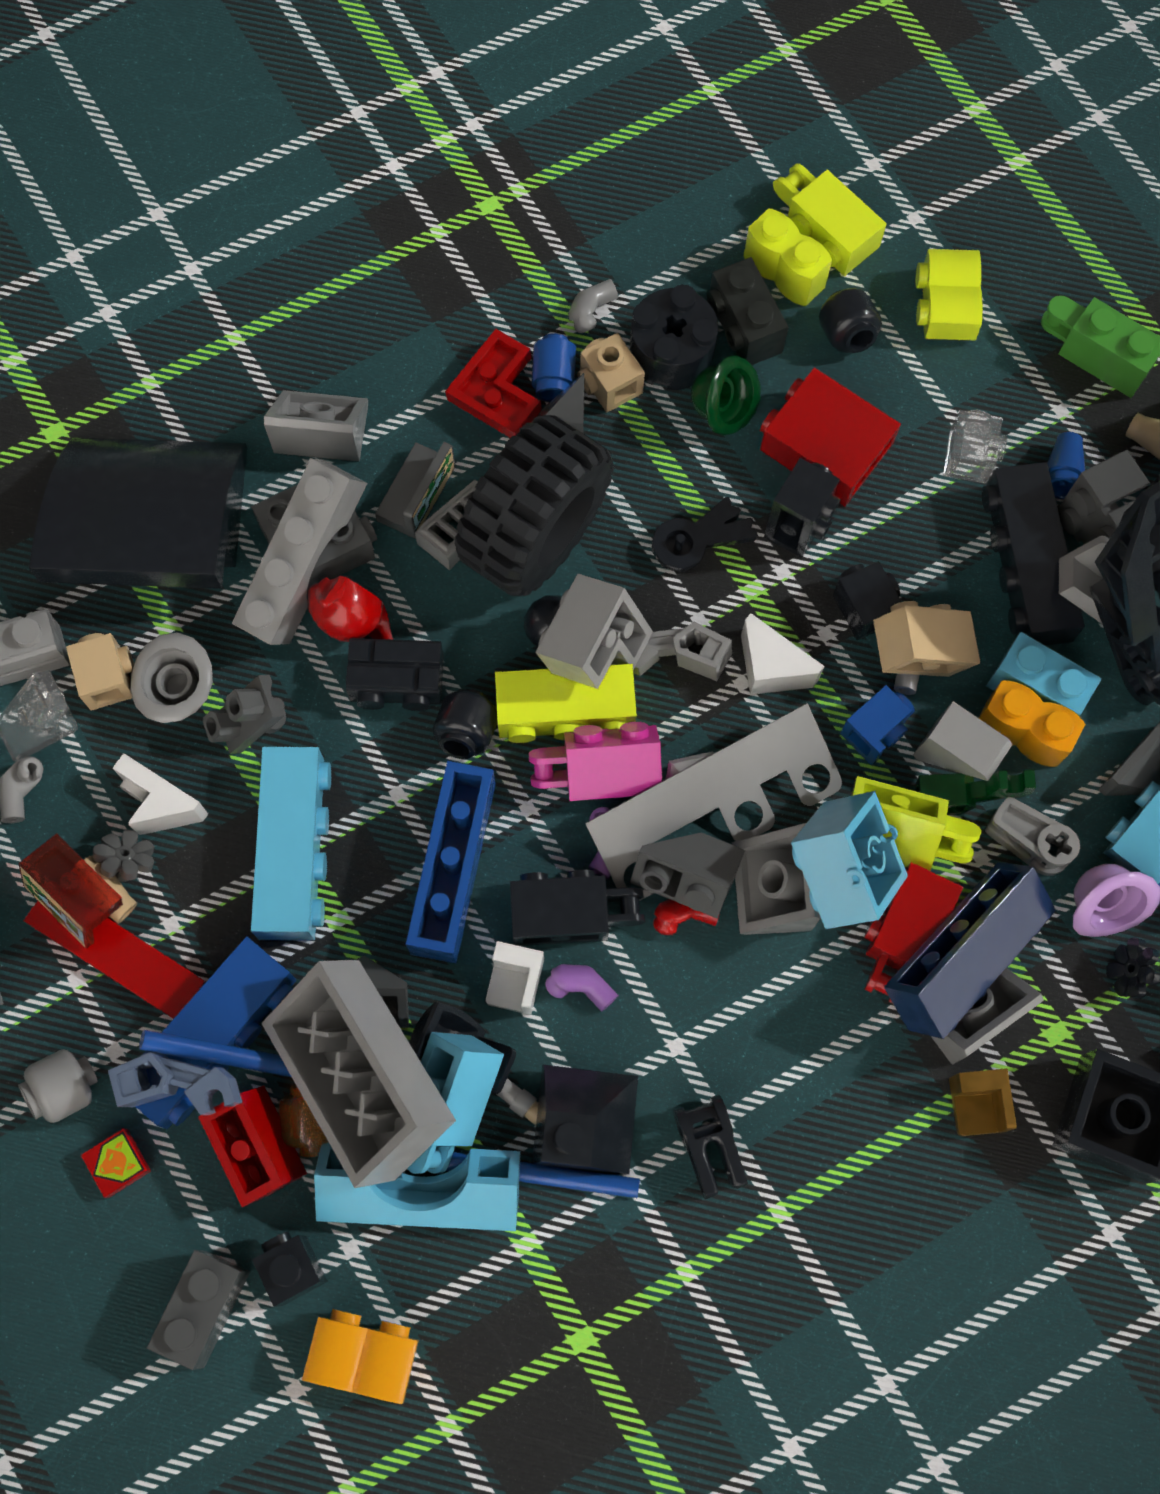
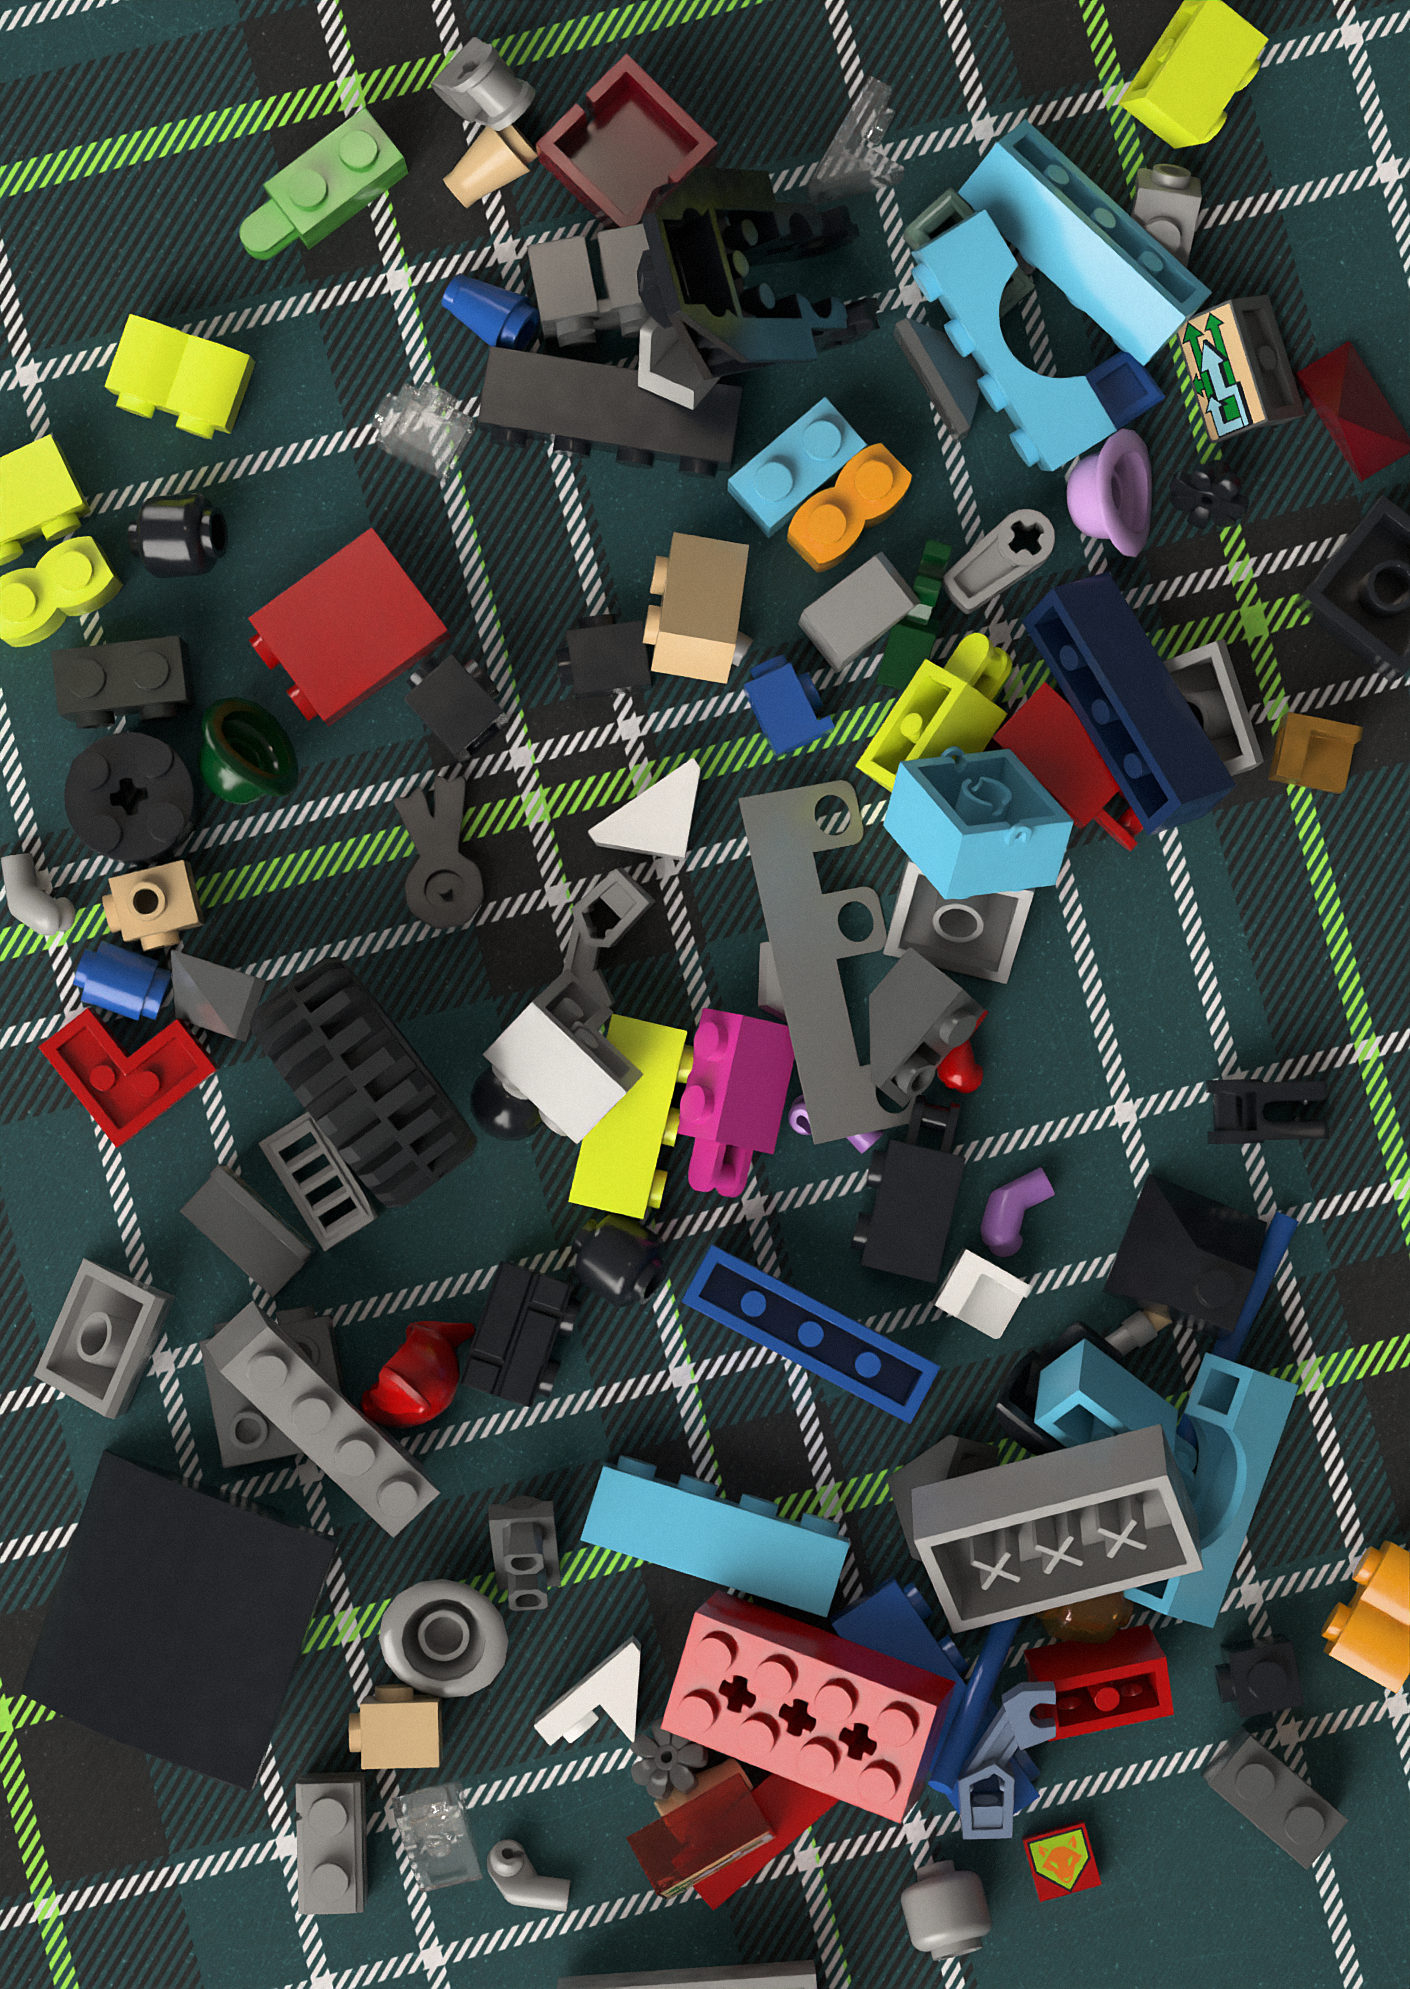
camera: 75 degrees left, 15 degrees up
(182, 935) = (813, 1744): none -> brick

